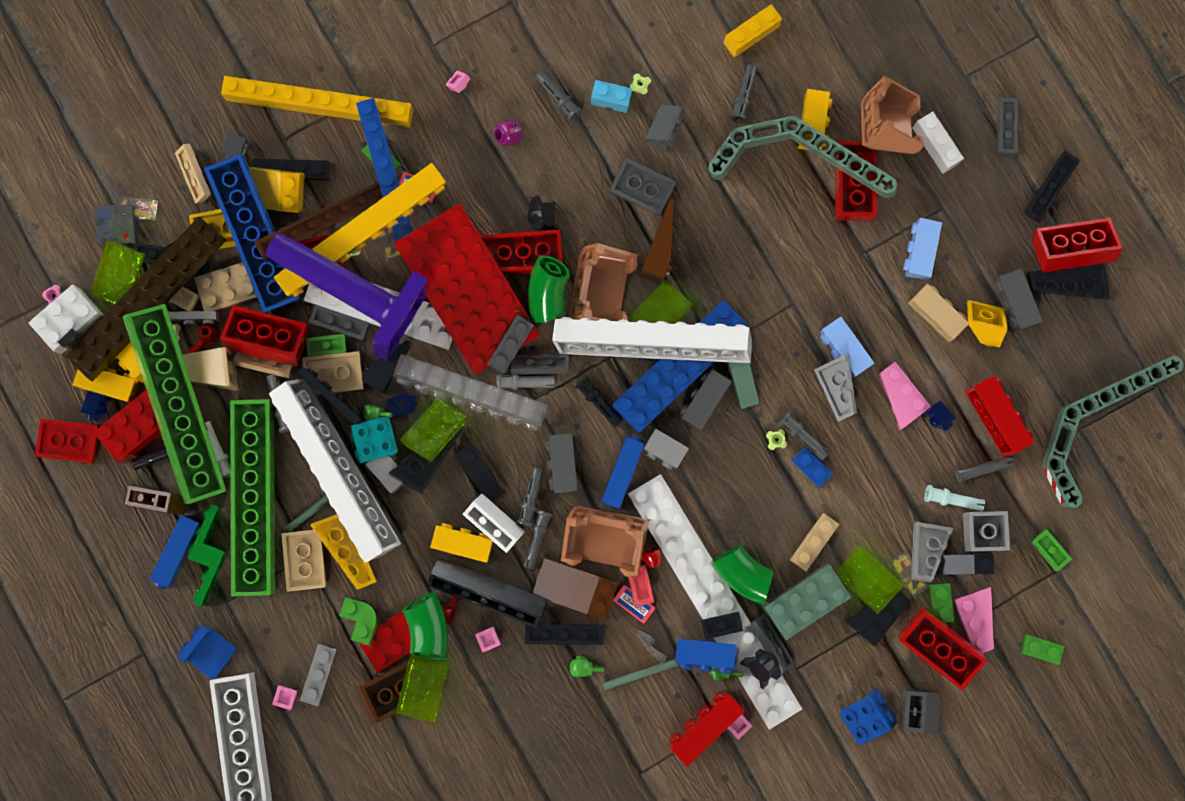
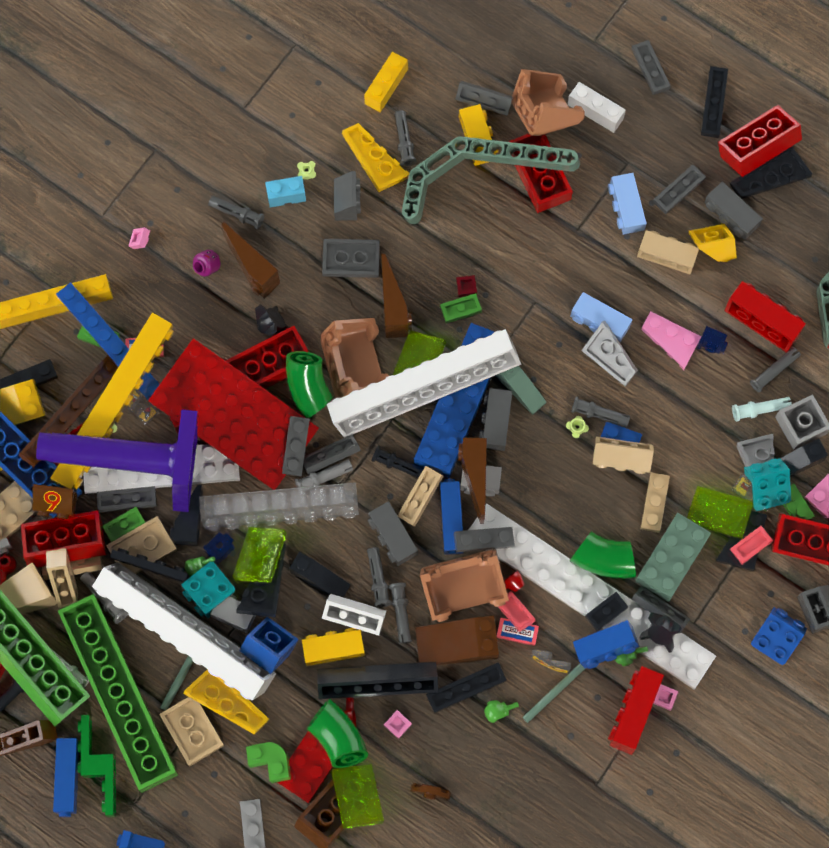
camera: 20 degrees left, 10 degrees down
(246, 372) = (61, 577): none -> tan brick
(268, 299) = (54, 501): none -> reddish brown slope
(404, 517) = (268, 645): none -> blue brick
(489, 713) = (430, 791): none -> reddish brown plate
(552, 167) = (258, 271): none -> reddish brown slope
(603, 440) = (420, 496): none -> tan plate
(641, 508) = (484, 539): none -> dark grey plate
(663, 437) = (473, 459): none -> reddish brown slope
(707, 101) = (378, 165): none -> yellow wing
(721, 280) = (460, 308): none -> bright green plate
(736, 261) = (466, 285): none -> dark red plate
(805, 486) = (623, 455): none -> tan brick
(837, 86) = (485, 97): none -> dark grey plate
(883, 623) = (751, 545): none -> coral tile
(927, 575) = (769, 483): none -> teal bracket
(977, 256) = (679, 189): none -> dark grey plate

